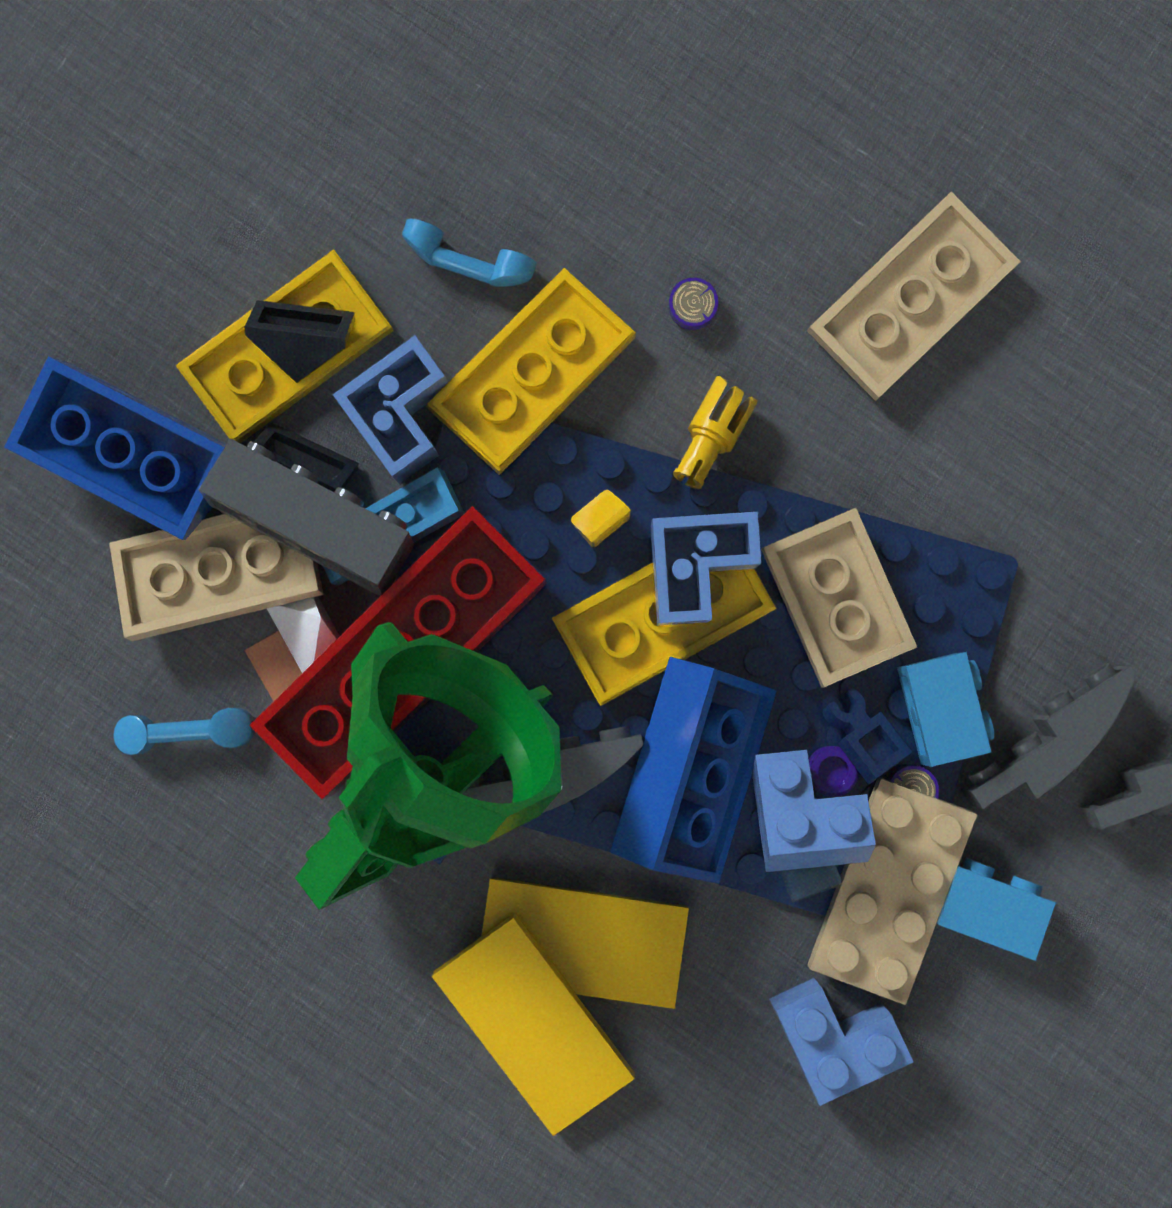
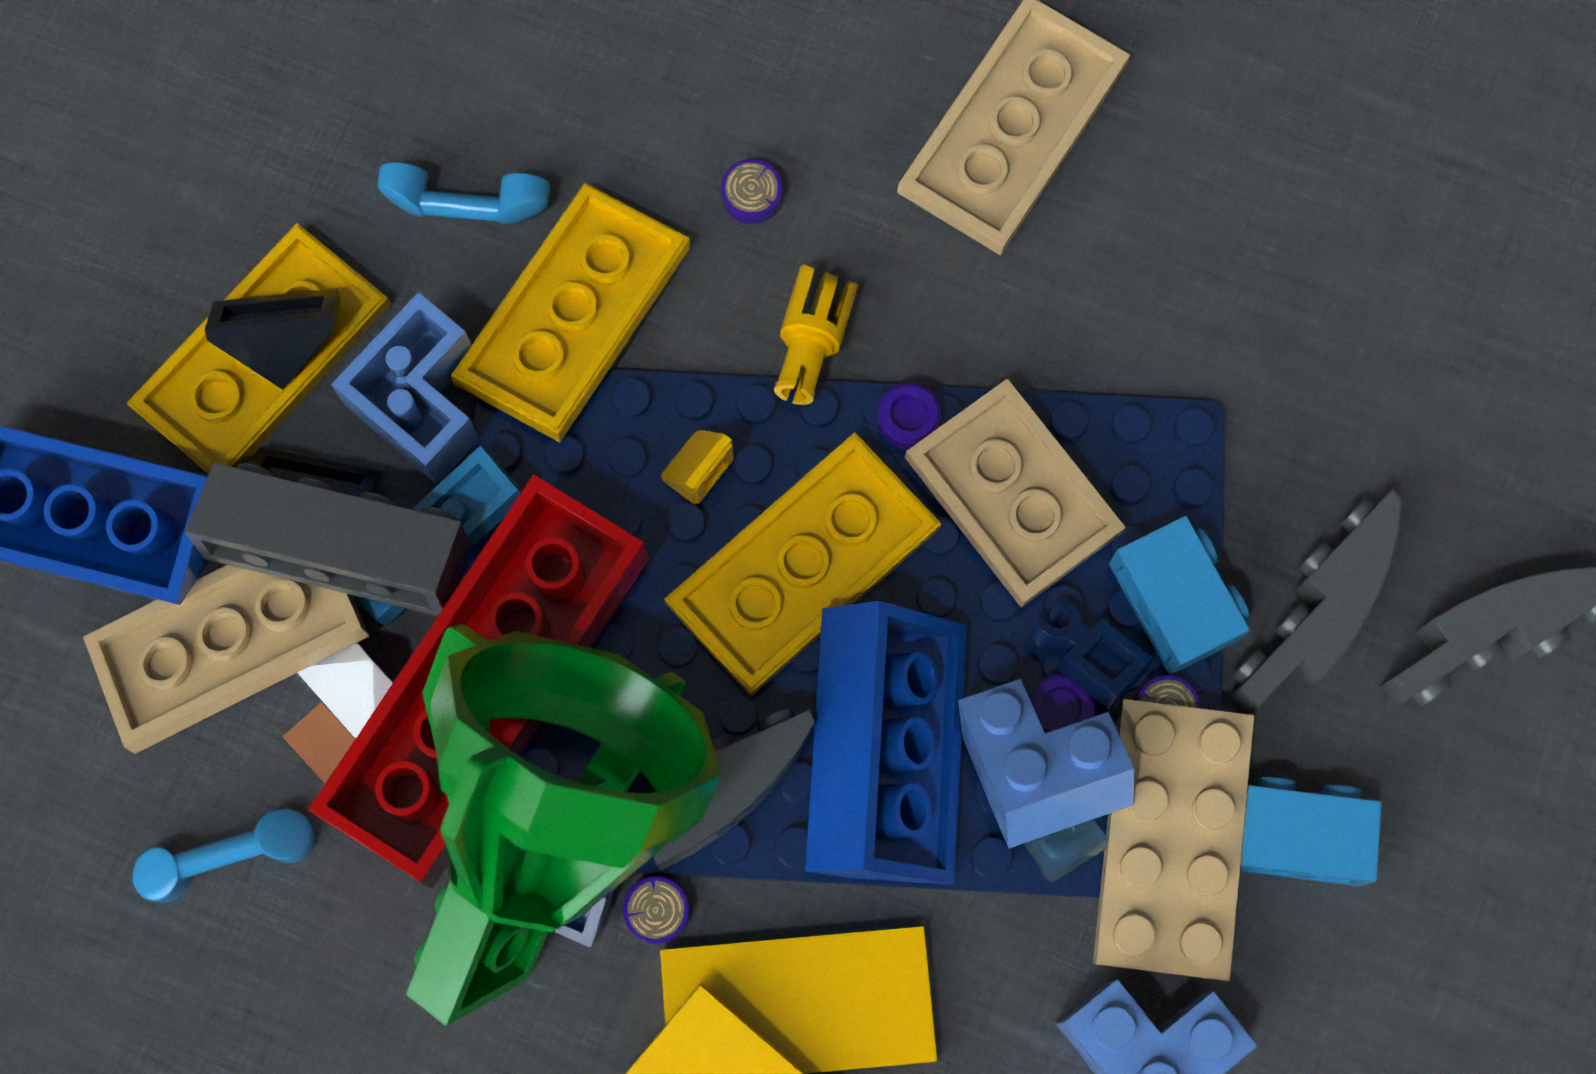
camera: 20 degrees left, 10 degrees down
(497, 854) = (656, 910): none -> tile
(690, 549) = (816, 469): medium blue brick -> none
(775, 515) = (907, 415): none -> dark purple tile

